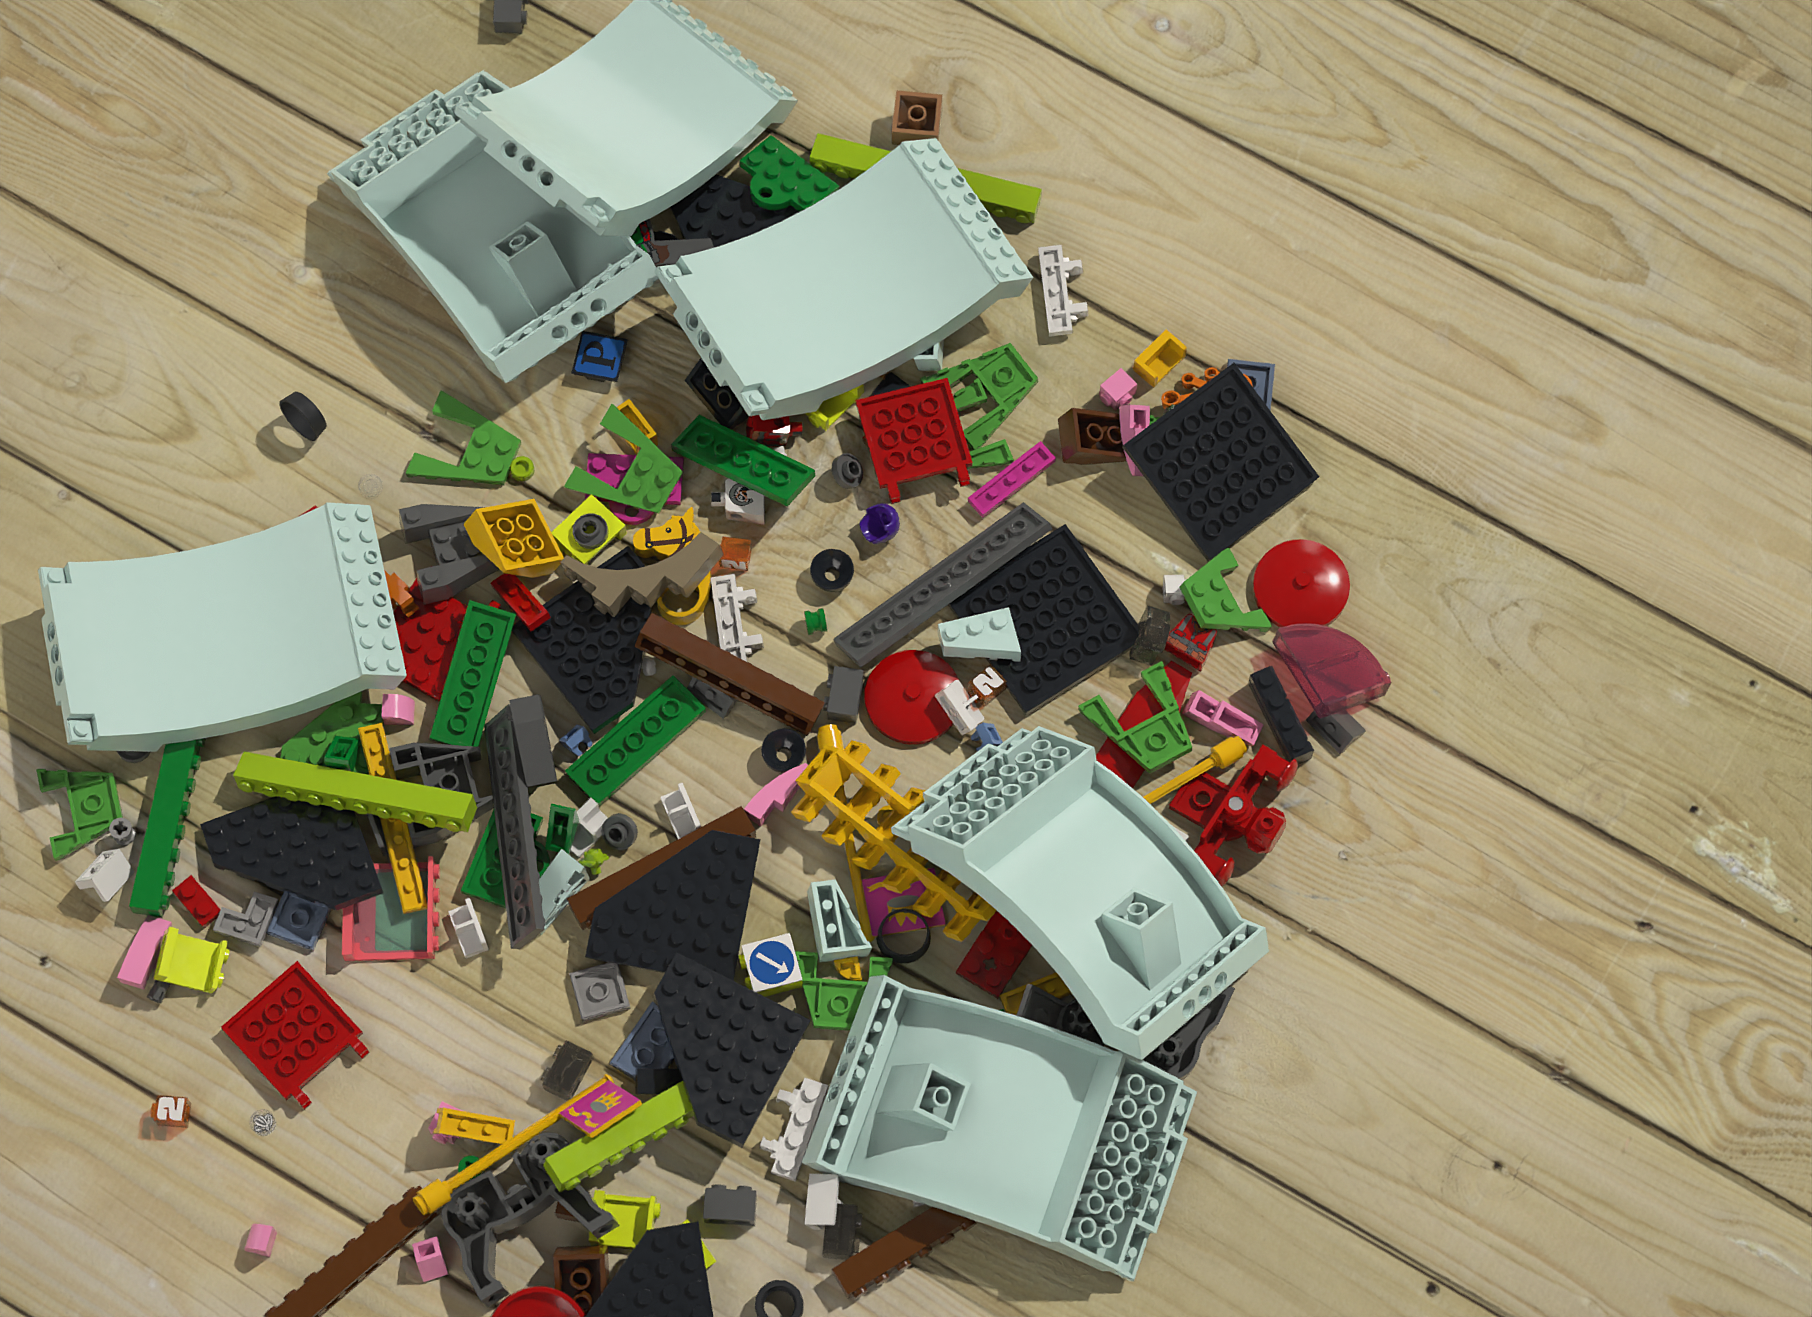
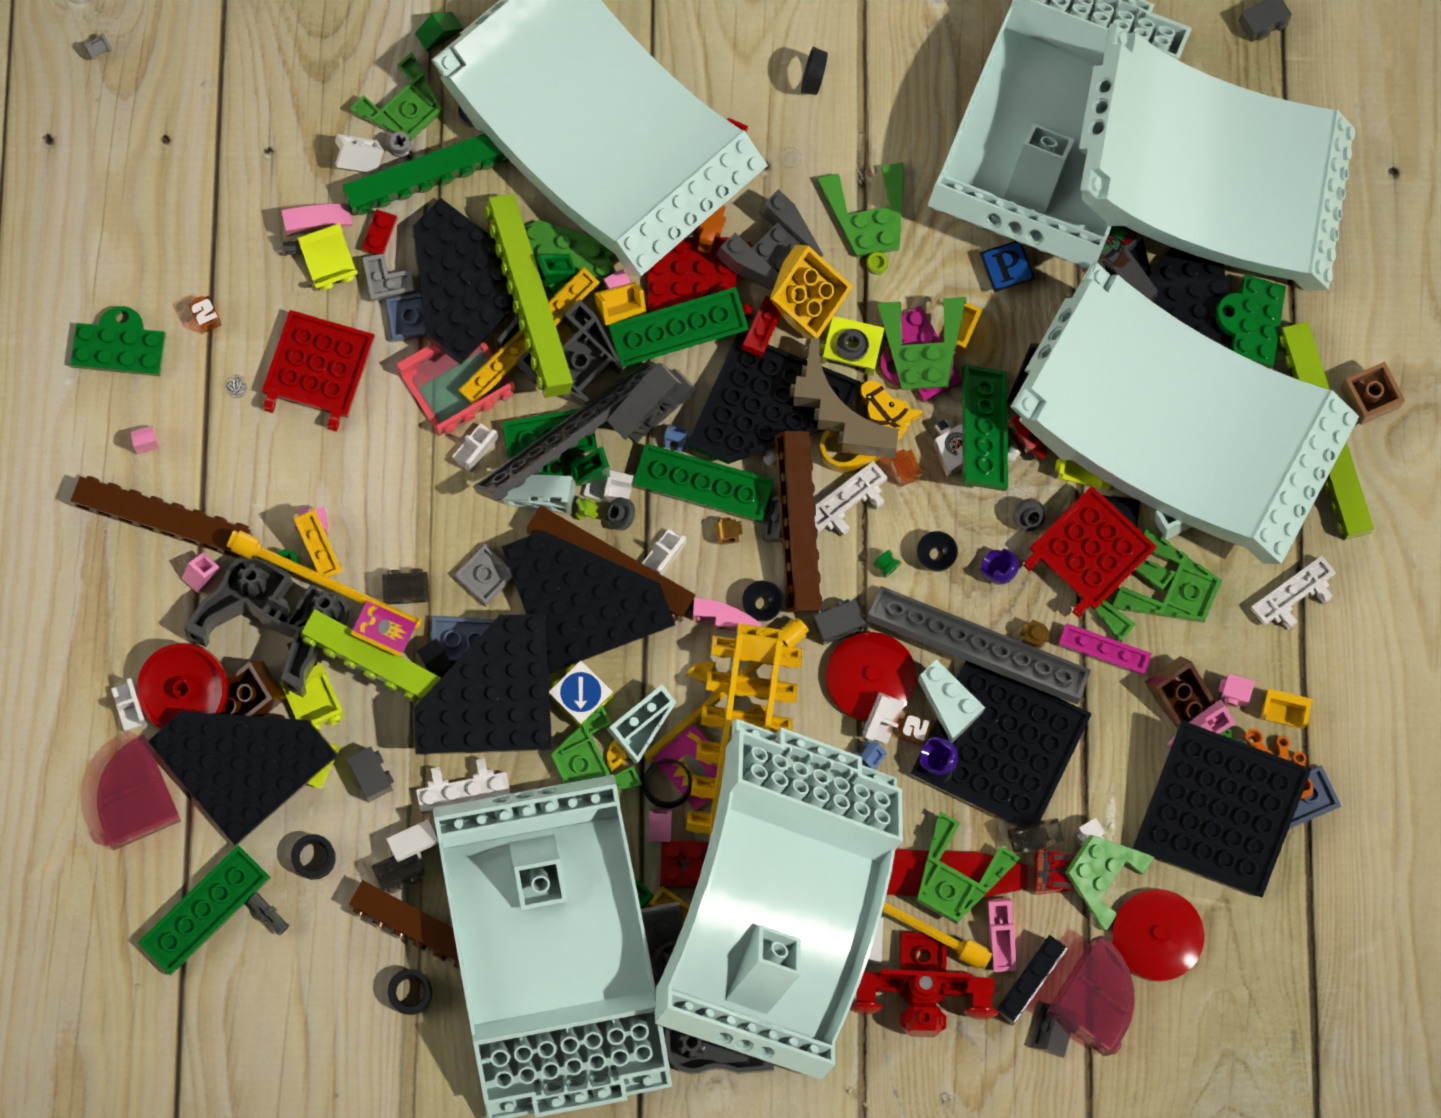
camera: 55 degrees right, 5 degrees up
(29, 733) = (438, 29): none -> green slope
(148, 1213) = (118, 345): none -> green plate
(415, 715) = (620, 303): none -> yellow panel
(696, 744) = (727, 531): none -> pearl gold plate
(815, 845) = (700, 670): none -> yellow tile
(940, 964) = (660, 825): none -> bright pink brick
(960, 530) = (1035, 634): none -> pearl gold plate
(962, 1266) = (410, 974): none -> black tyre
(1028, 675) = (939, 756): none -> dark purple hair

